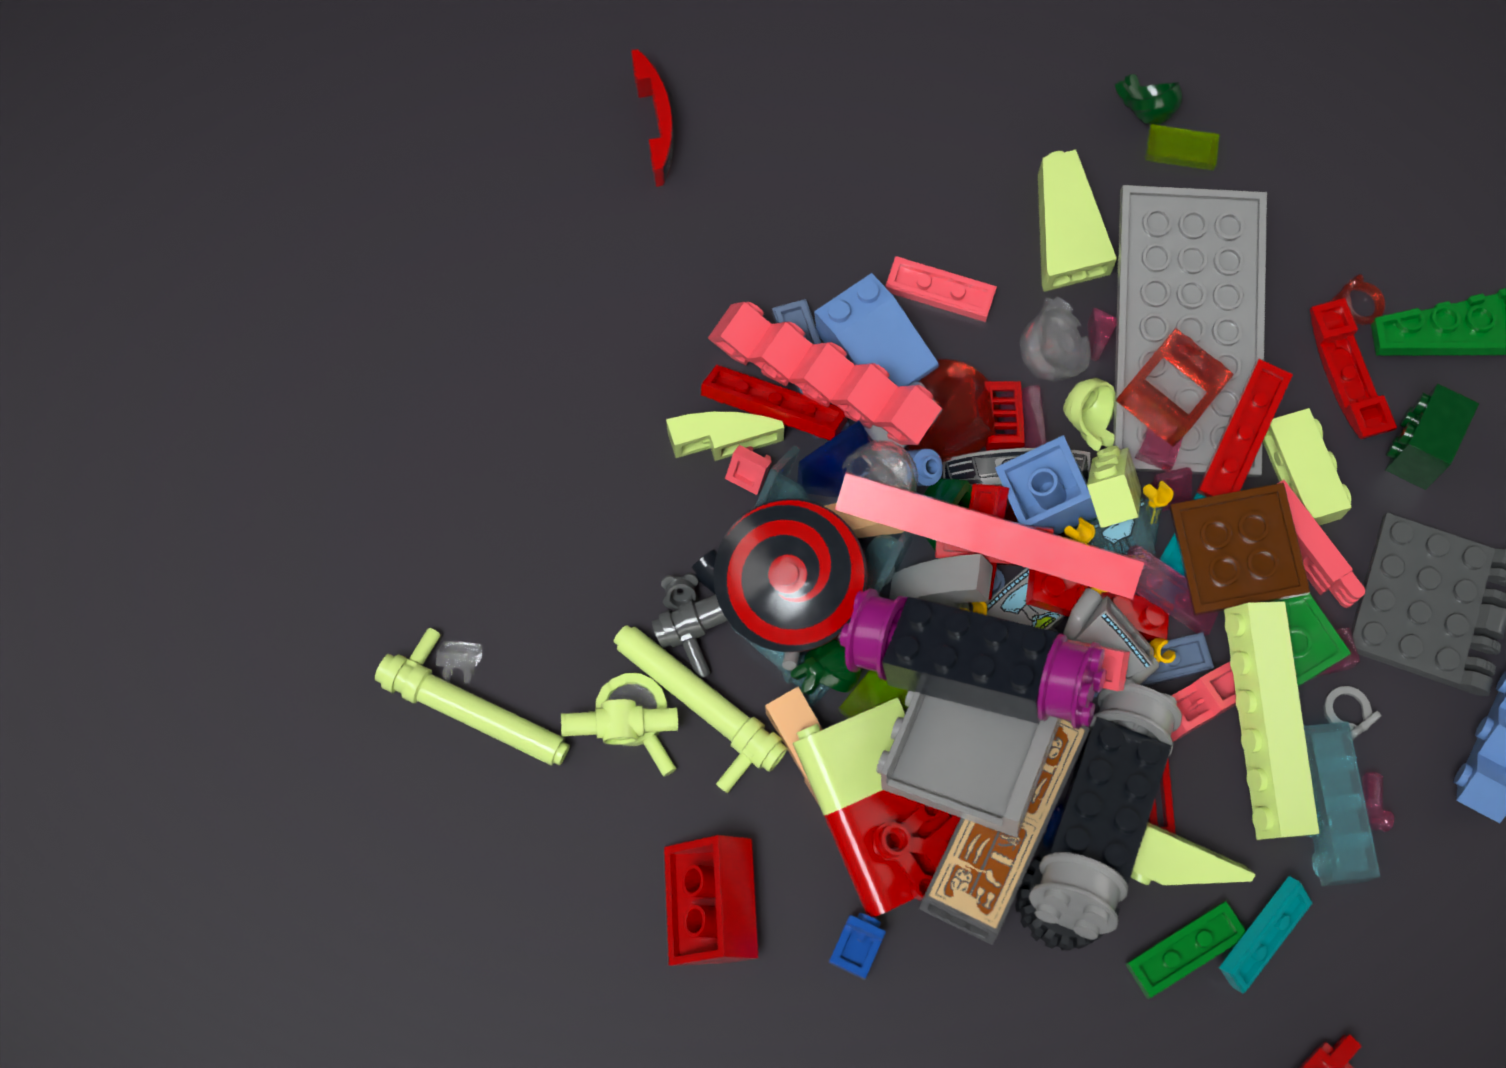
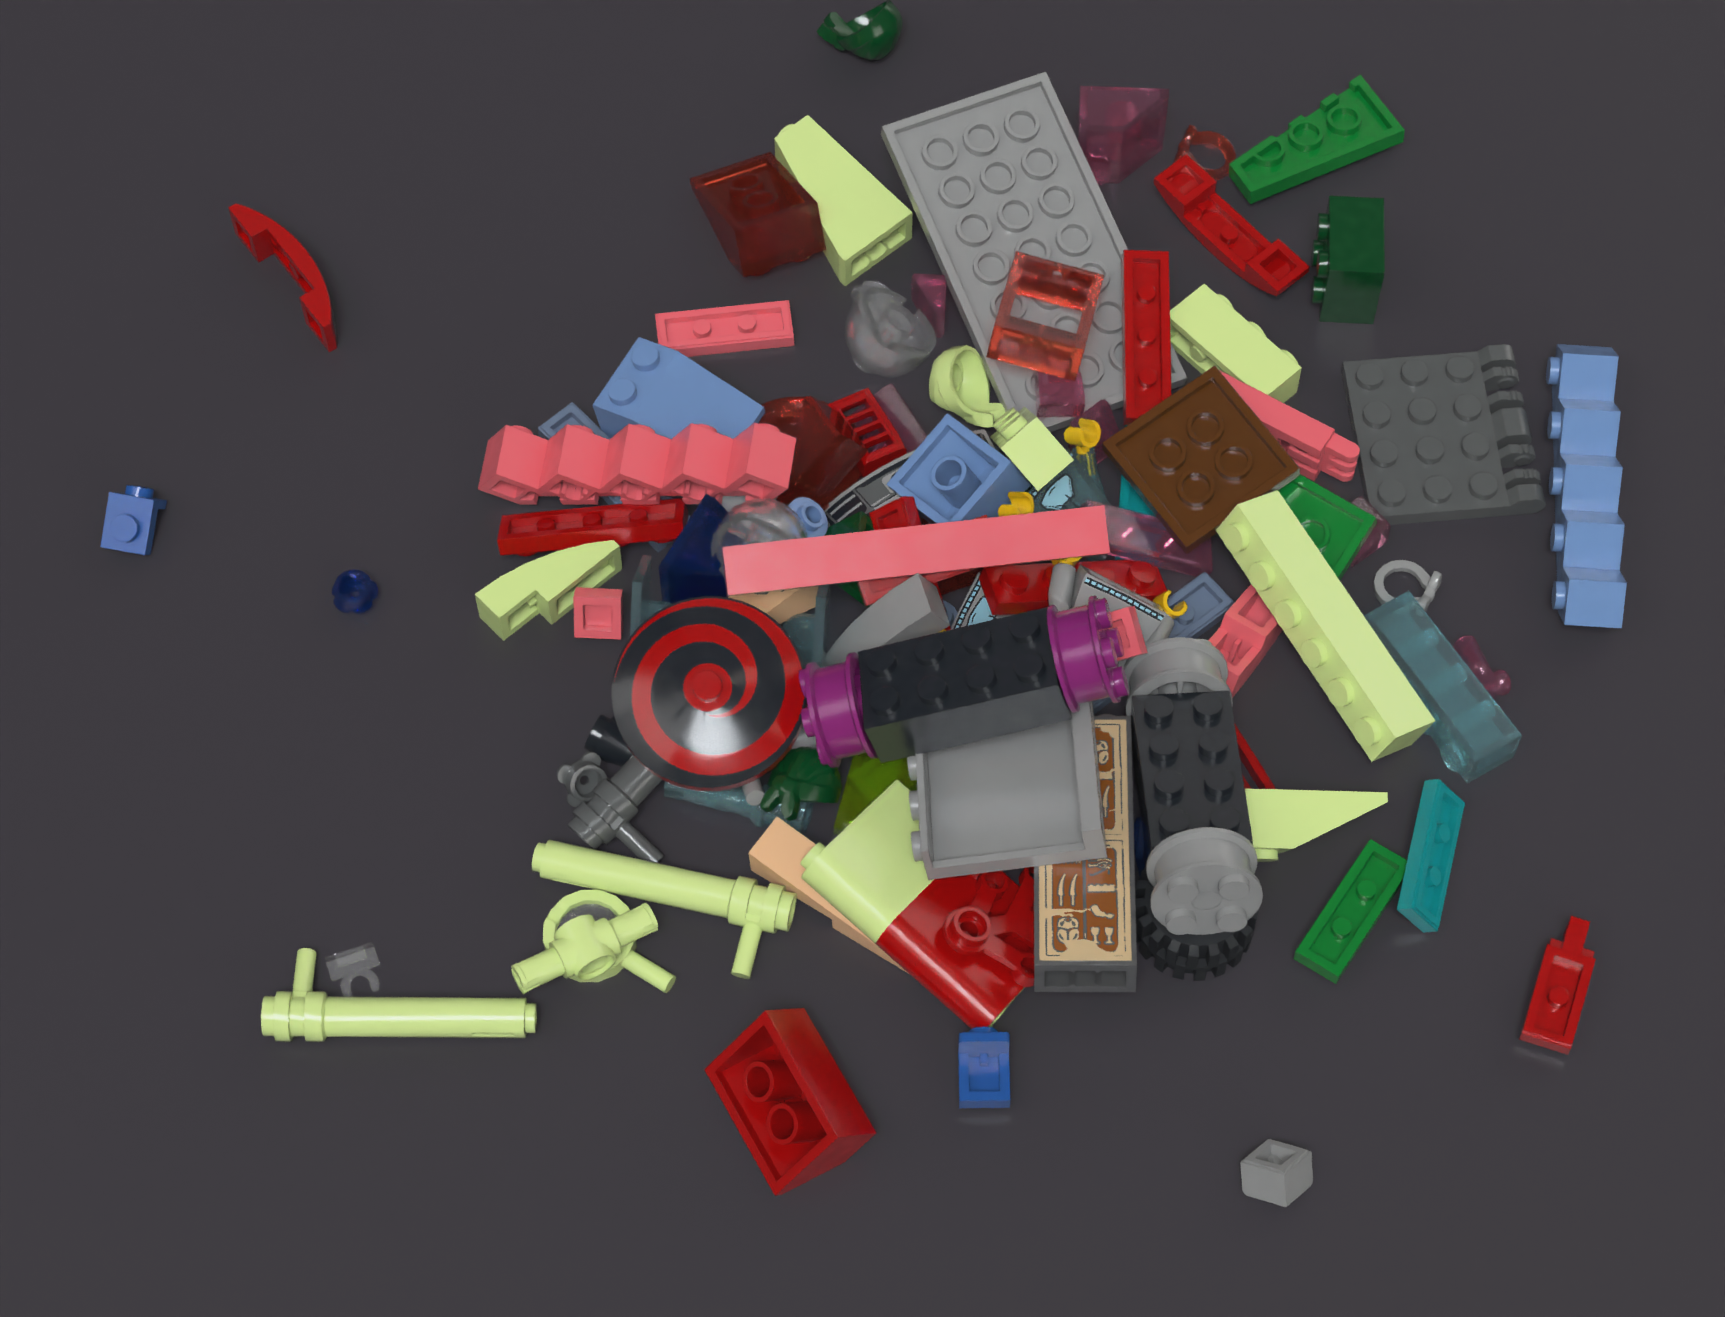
camera: 25 degrees left, 10 degrees down
(462, 256) = (131, 520): none -> bracket
(585, 369) = (350, 582): none -> clear blue plate
(1006, 210) = (760, 214): none -> clear red slope
(1182, 147) = (925, 70): clear neon green tile -> none
(1303, 257) = (1120, 128): none -> clear pink slope

